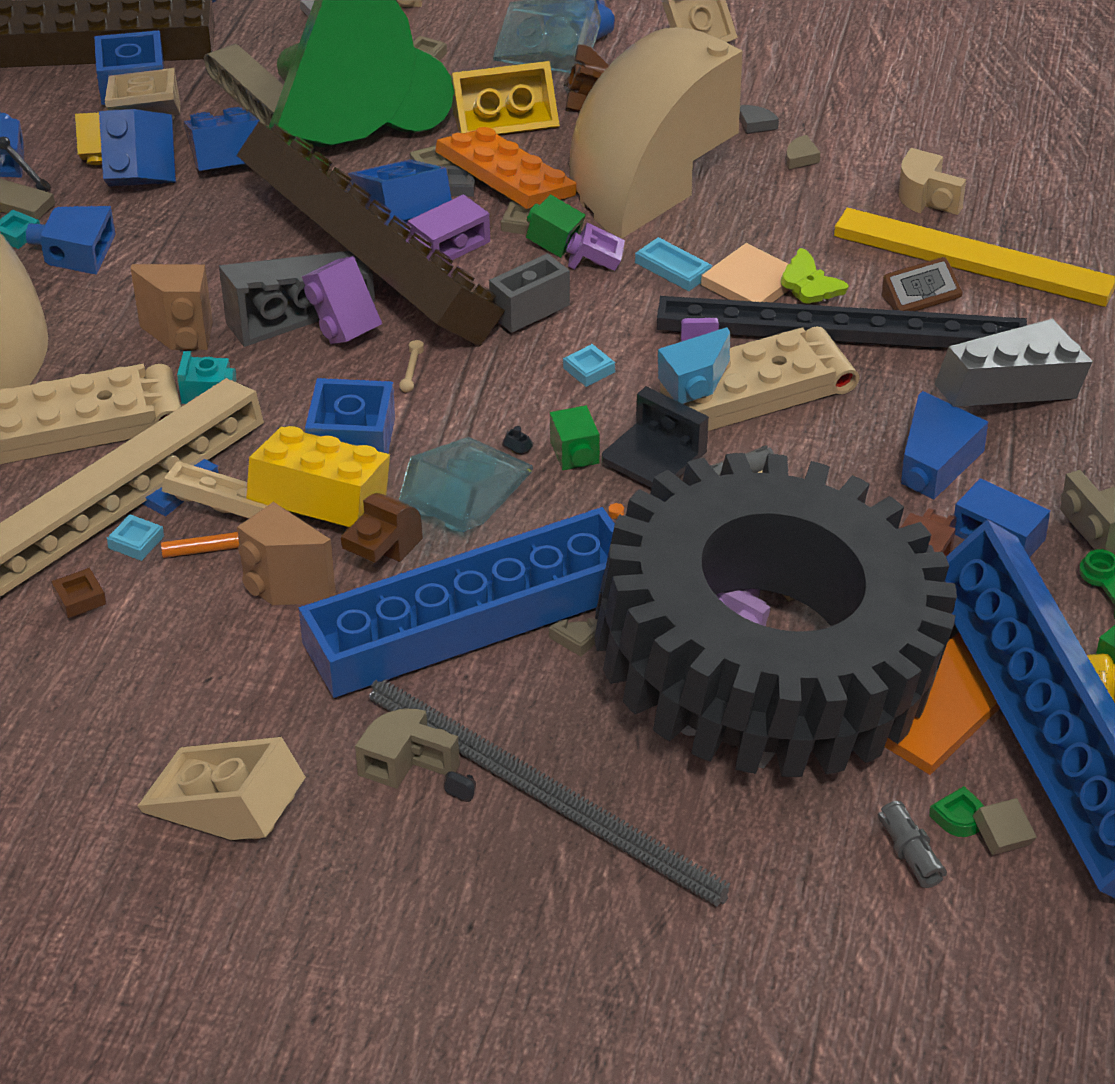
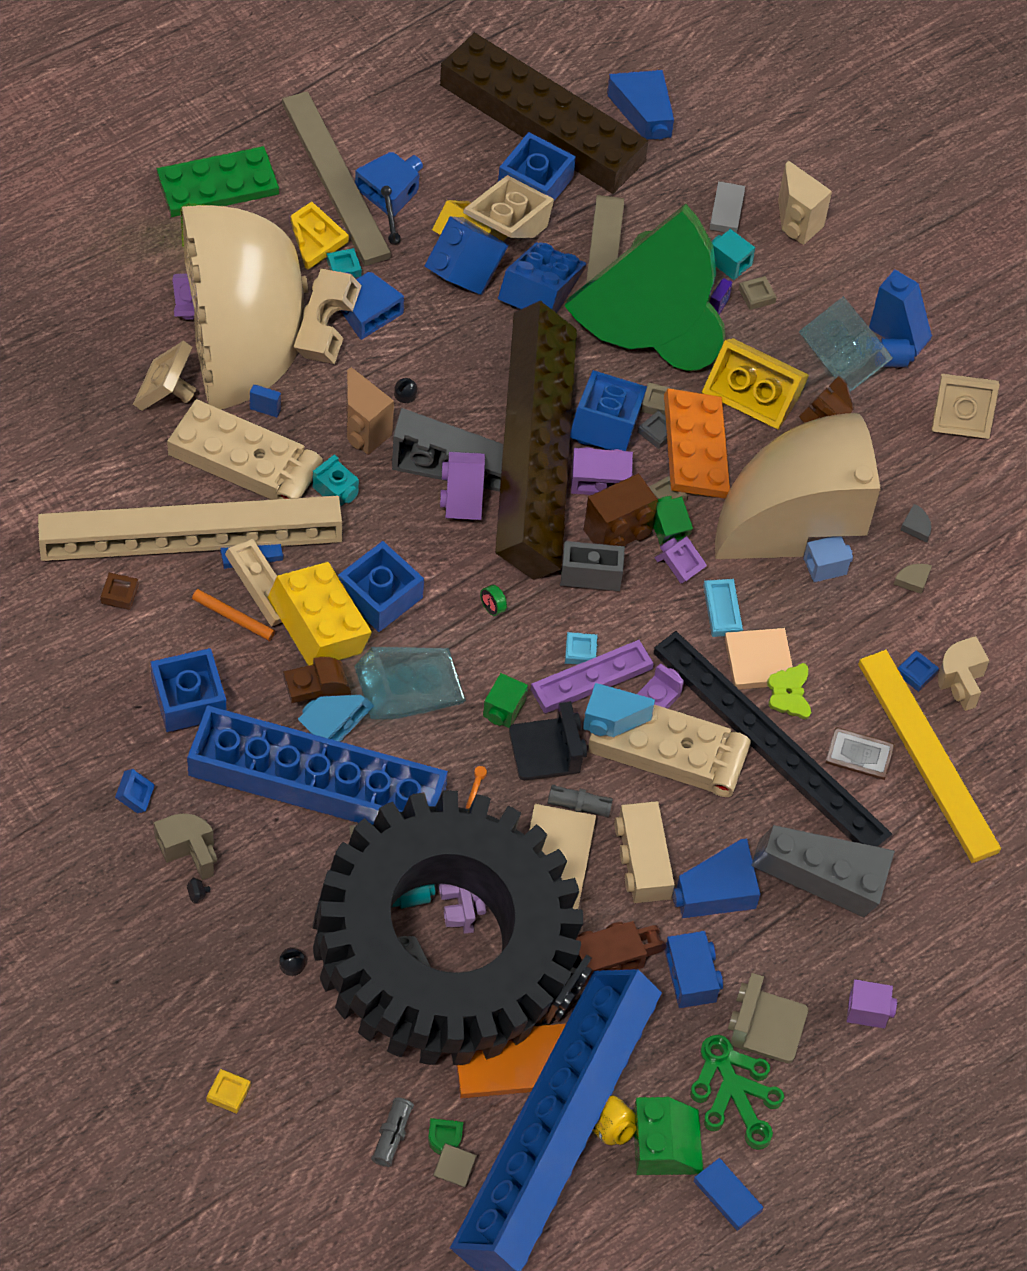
camera: 35 degrees right, 15 degrees up
(41, 234) = (330, 294): none -> tan arch
(58, 360) = (265, 400): none -> blue tile
(135, 537) = (190, 572): medium azure tile -> none
(226, 787) = (70, 791): tan slope -> none
(252, 618) = (186, 687): none -> blue brick
(285, 558) = (237, 659): medium nougat slope -> none
(298, 740) = (134, 791): none -> blue plate
(415, 347) = (456, 576): tan hinge -> none
(430, 537) = (334, 715): none -> dark azure slope
(467, 374) = (493, 600): none -> tile
(509, 234) = (621, 513): none -> reddish brown brick
(517, 440) = (475, 674): black rock -> none
(561, 800) = (236, 932): dark grey axle -> none
(627, 374) = (580, 679): none -> medium lavender plate
(636, 781) = (294, 965): none -> black hinge
(707, 934) = (228, 1091): none -> yellow tile
(718, 176) = (827, 558): none -> medium blue brick
(847, 456) = (644, 852): none -> tan brick
(888, 206) = (917, 670): none -> blue tile

